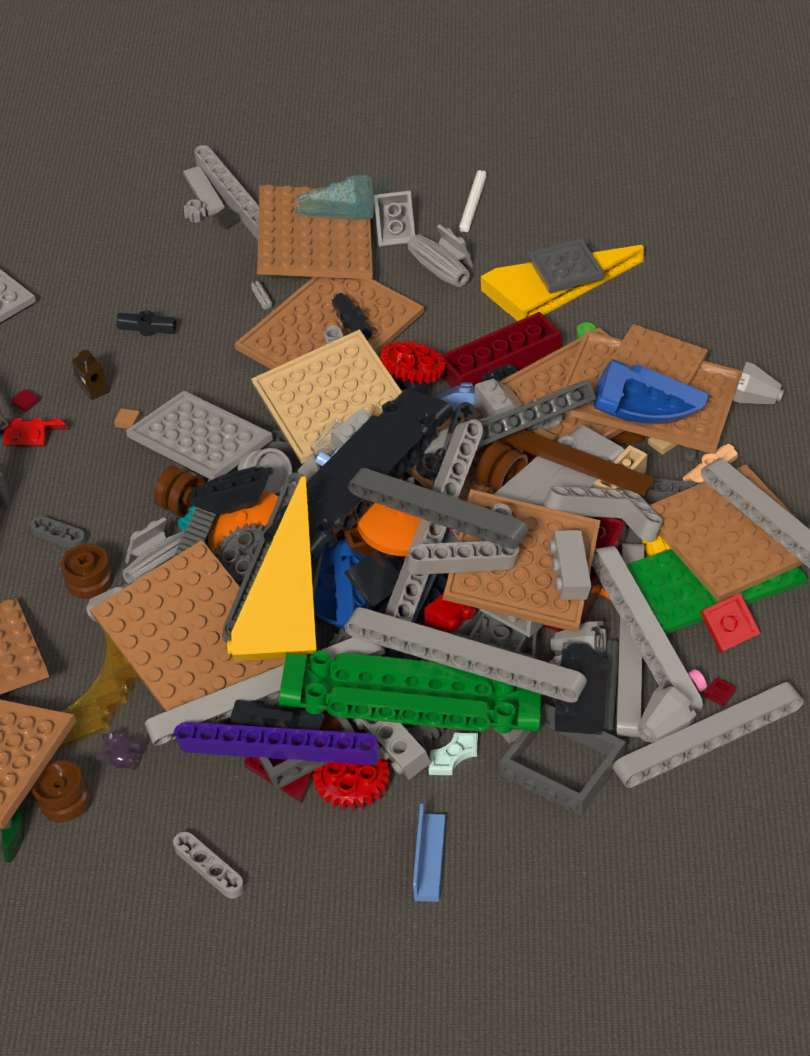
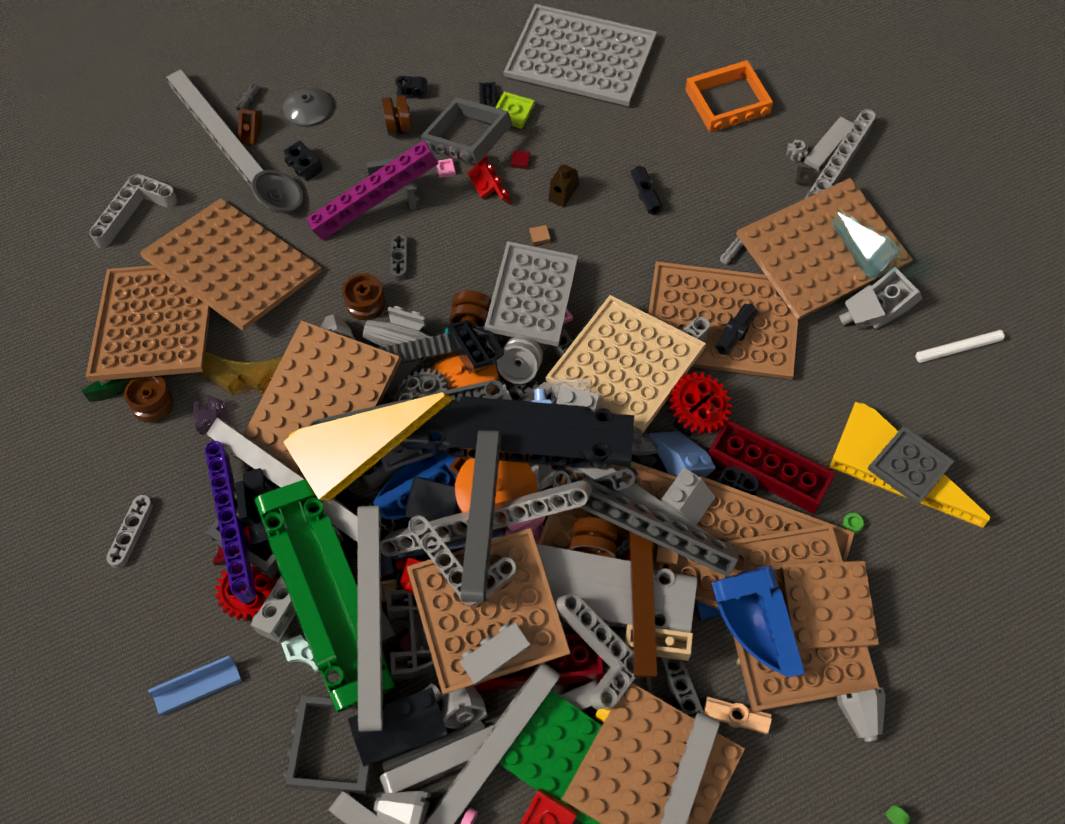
camera: 60 degrees right, 15 degrees up
(88, 250) = (721, 76): none -> orange window
(395, 235) = (864, 309): none -> light grey torso
(444, 256) = (864, 359): light grey plate -> none

